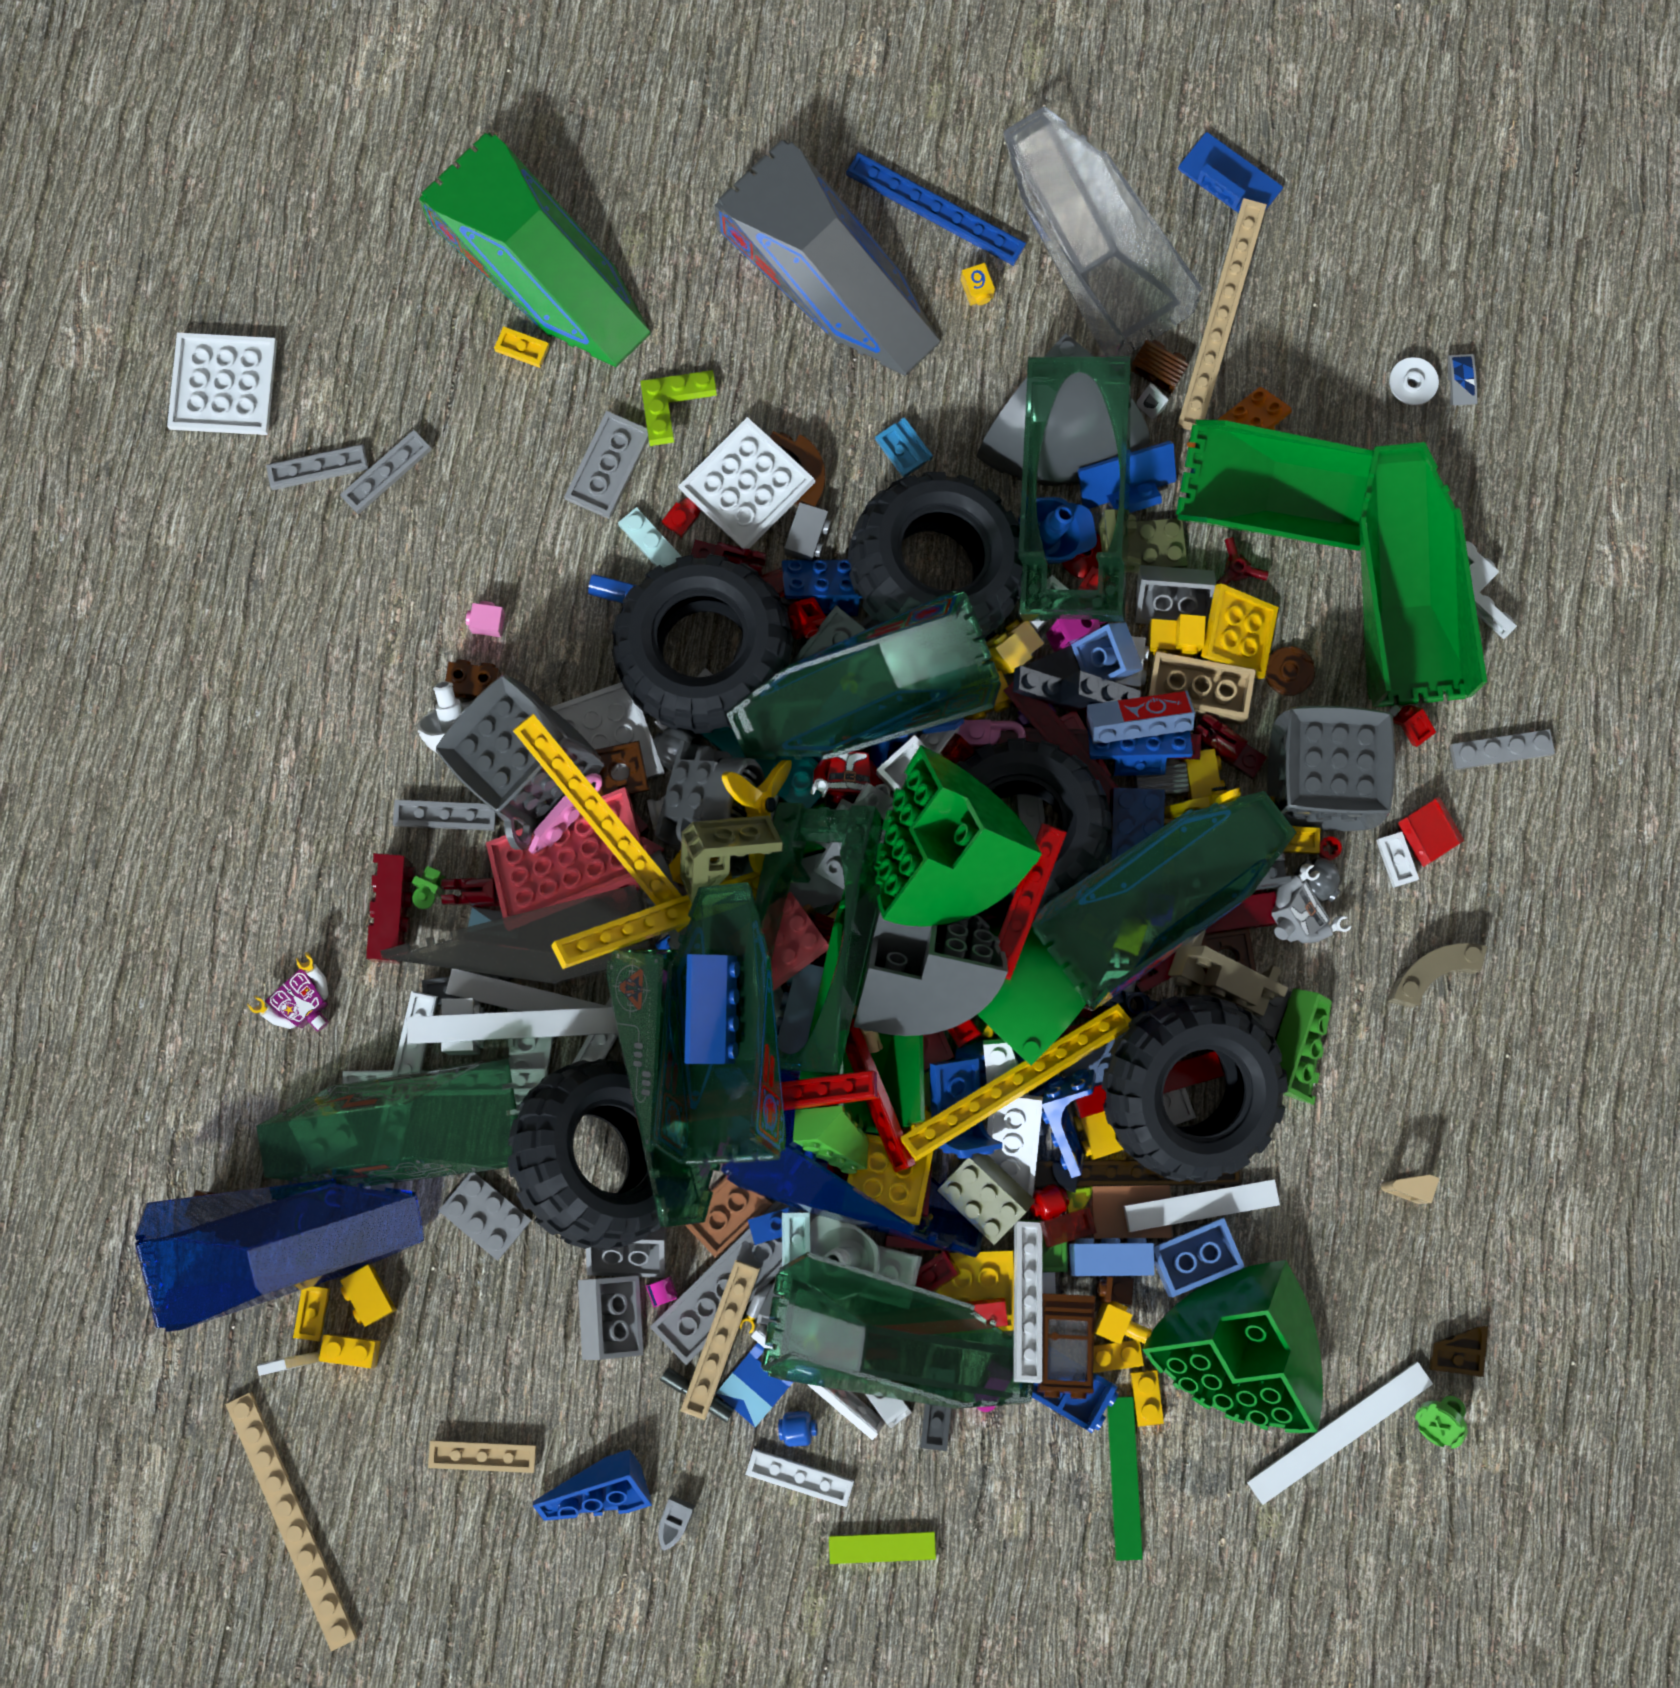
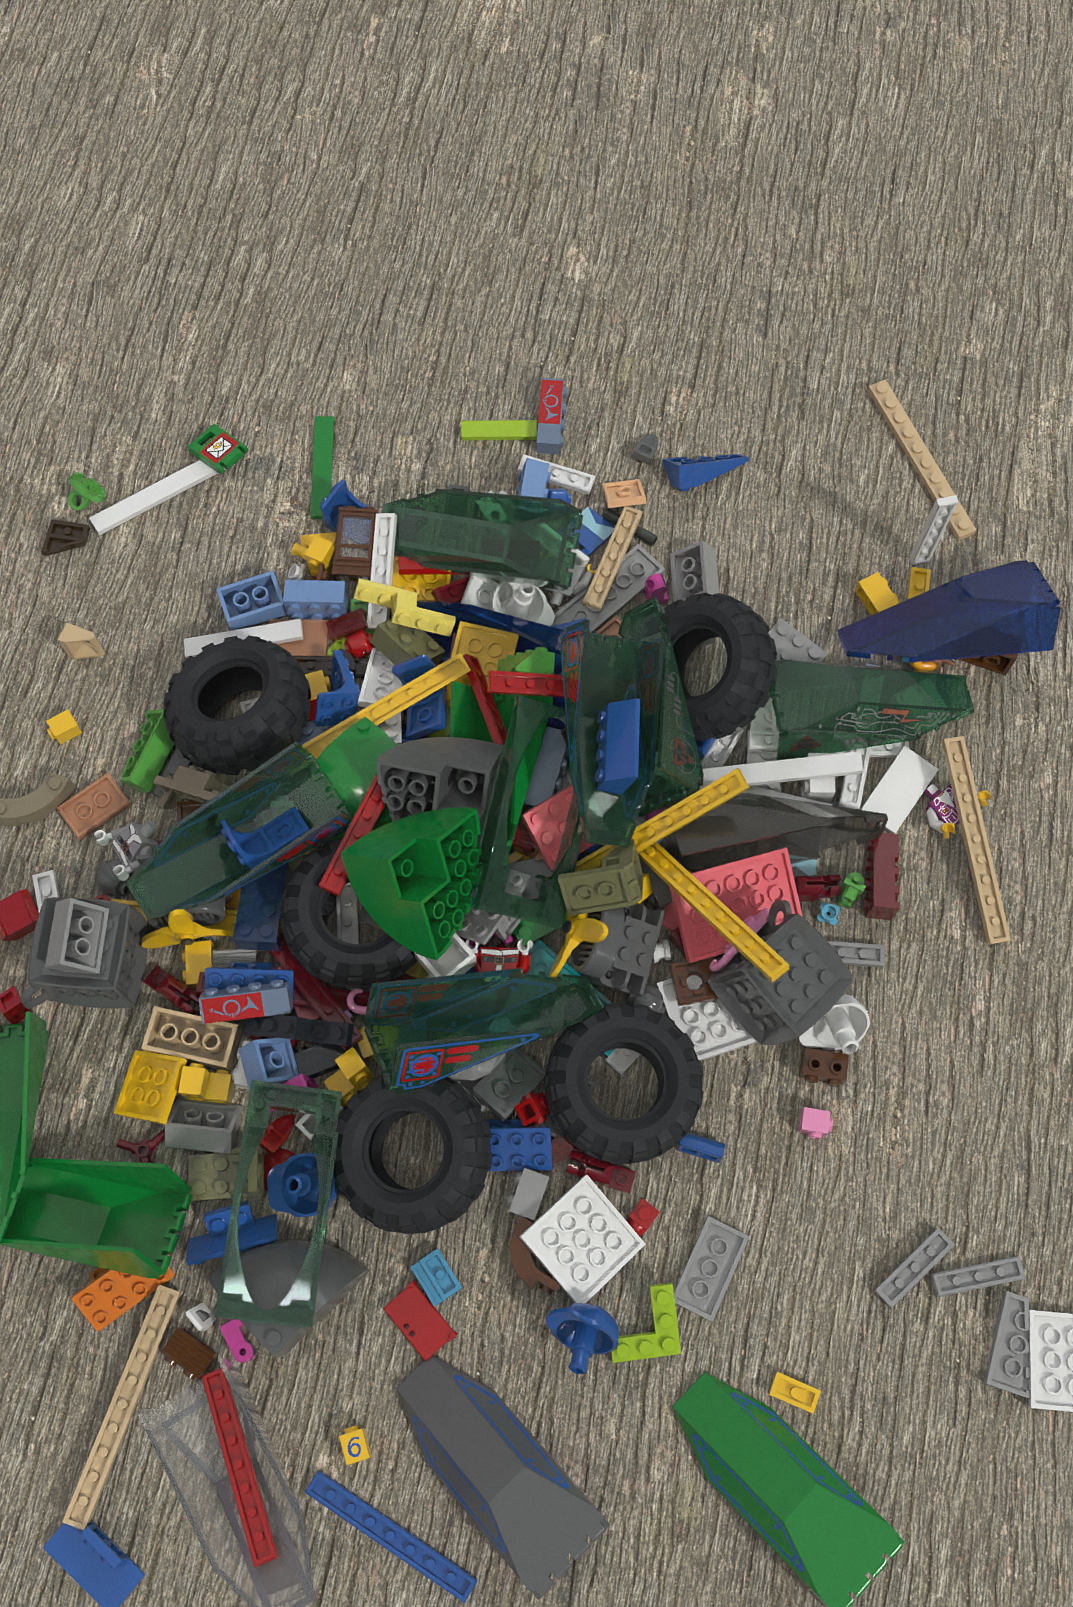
camera: 175 degrees left, 10 degrees down
(272, 955) = (975, 840): none -> tan plate
(290, 394) = (1009, 1357): none -> light grey wing
(349, 1350) = (888, 559): yellow brick -> none
(360, 1023) = (900, 788): none -> white tile
(452, 858) = (832, 909): none -> medium azure plate
(482, 1456) = (786, 492): tan plate -> none
(648, 539) = (669, 1192): light aqua plate -> none
(705, 1442) = (624, 493): none -> light nougat tile
(740, 393) = (585, 1331): none -> blue piece
(795, 1235) = (555, 608): light aqua plate -> none
(809, 1571) = (550, 416): none -> brick
(832, 1430) = (534, 479): none -> medium blue wedge
(919, 407) = (424, 1324): none -> red door
(993, 1240) = (404, 607): none -> light yellow bracket
(1092, 252) = (240, 1468): none -> red tile
(1134, 894) = (267, 840): none -> blue bracket
(1142, 1306) = (297, 572): none -> white plate
(1146, 1398) = (300, 516): yellow plate -> none
(1245, 1349) = (222, 536): green brick -> none
(1269, 1495) = (219, 450): none -> green container
(1290, 671) = (111, 1057): reddish brown tile -> none
(1342, 761) = (77, 937): none -> light grey slope
(1360, 974) = (93, 806): none -> nougat tile
(1414, 1074) = (63, 727): none -> yellow brick

